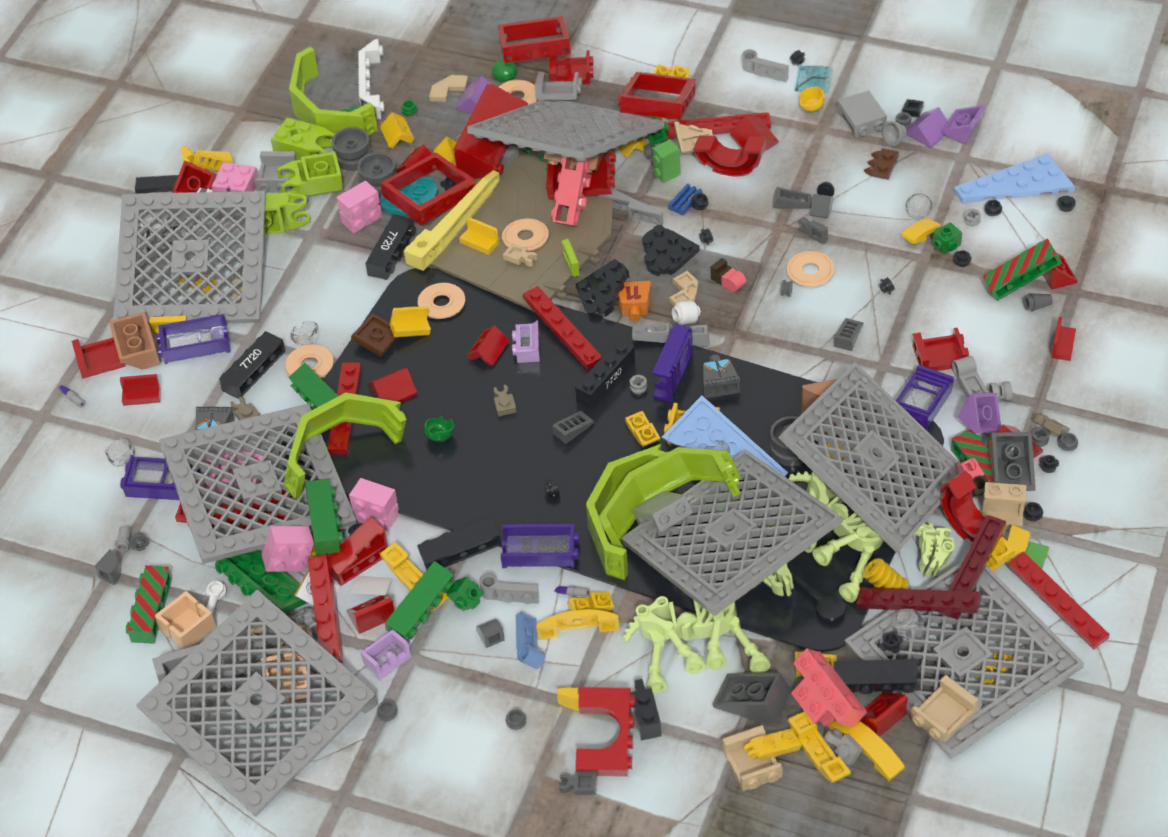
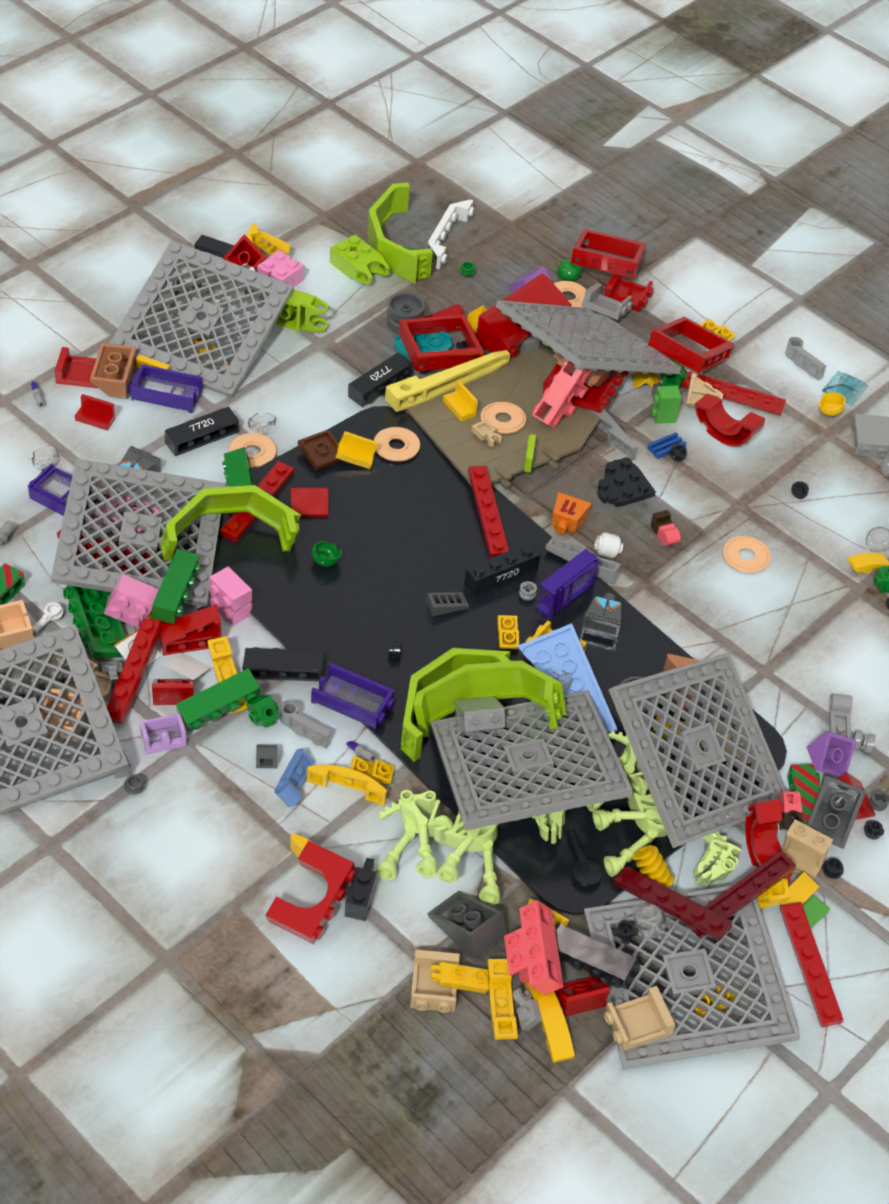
camera: 15 degrees right, 0 degrees up
(138, 537) = (17, 538): dark grey plate -> none
(244, 411) = (172, 466): dark tan plate -> none
(268, 178) = (321, 277): light grey panel -> none
(312, 174) = (348, 291): lime brick -> none
(350, 146) = (394, 279): dark grey wheel -> none
(359, 207) = (372, 334): bright pink piece -> none
(396, 129) = (445, 282): yellow panel -> none
(440, 90) = (518, 263): tan tile -> none
(489, 345) = (414, 500): red panel -> none
(504, 402) = (399, 555): dark tan plate -> none
(516, 719) = (242, 844): dark grey plate -> none
(527, 342) = (448, 511): lavender window -> none
(582, 784) = (266, 931): dark grey plate -> none
(602, 288) = (544, 491): black plate -> none
(688, 285) = (625, 524): tan tile -> none
(706, 236) = (666, 485): black plate -> none
(753, 127) = (764, 407): red slope -> none
(784, 199) = (760, 482): dark grey slope -> none
(787, 288) = (714, 562): dark grey bush -> none
(797, 57) = (840, 362): black plate -> none
(816, 230) = (770, 521): dark grey plate -> none
(821, 205) = (788, 502): dark grey brick -> none
(844, 342) = (744, 636): dark grey slope -> none
(882, 164) = (868, 488): reddish brown plate -> none
(886, 286) = (808, 599): black plate -> none
(925, 394) = (787, 714): dark purple door -> none
(939, 351) = (823, 680): red panel -> none

